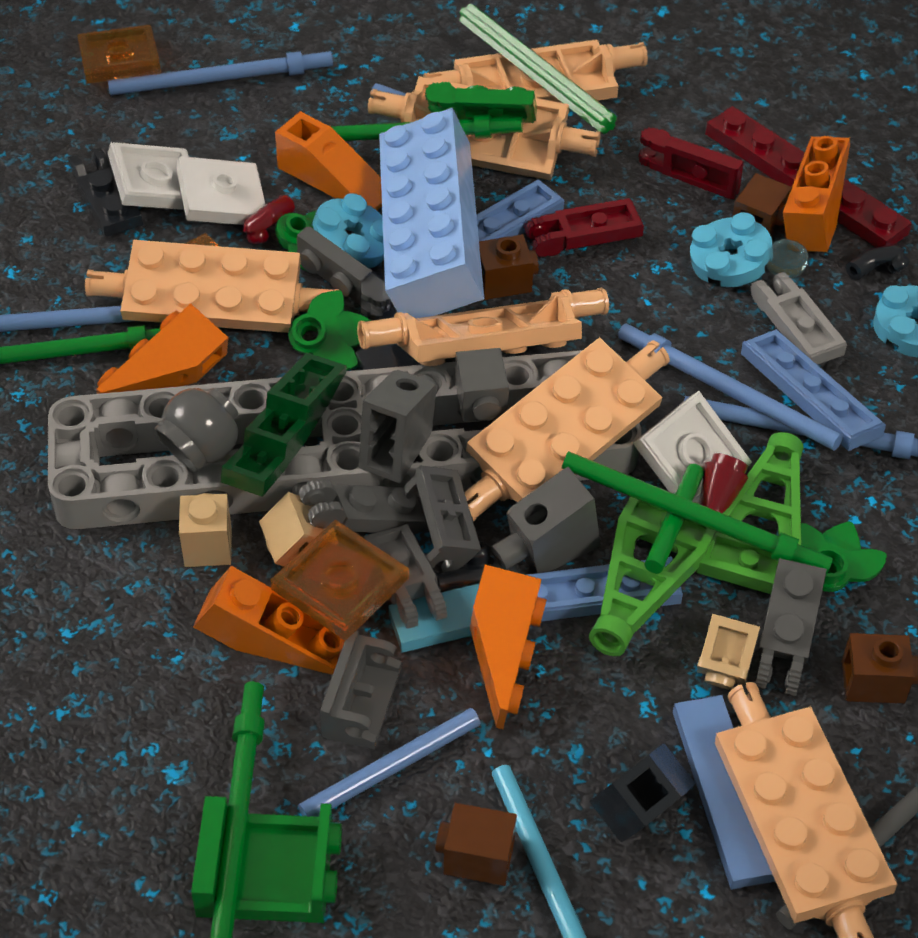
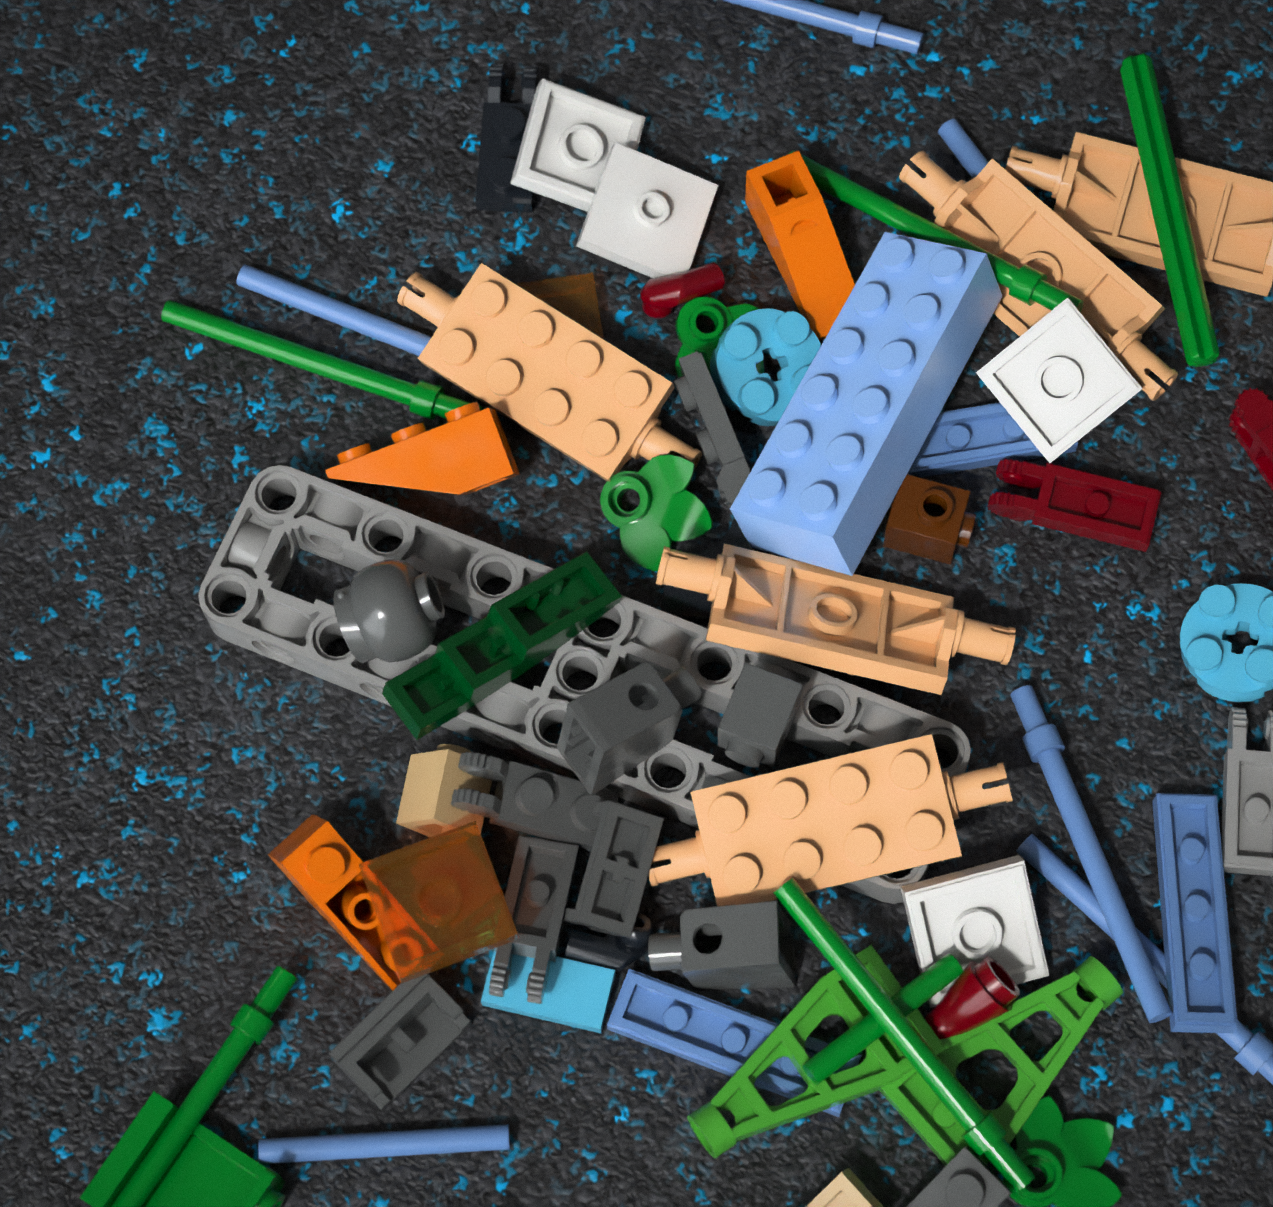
camera: 35 degrees right, 20 degrees up
(205, 530) = (348, 730): tan brick -> none
(481, 100) = (1038, 250): green hinge -> none
(499, 629) = (591, 1052): orange slope -> none
(535, 162) = (1059, 380): none -> white plate

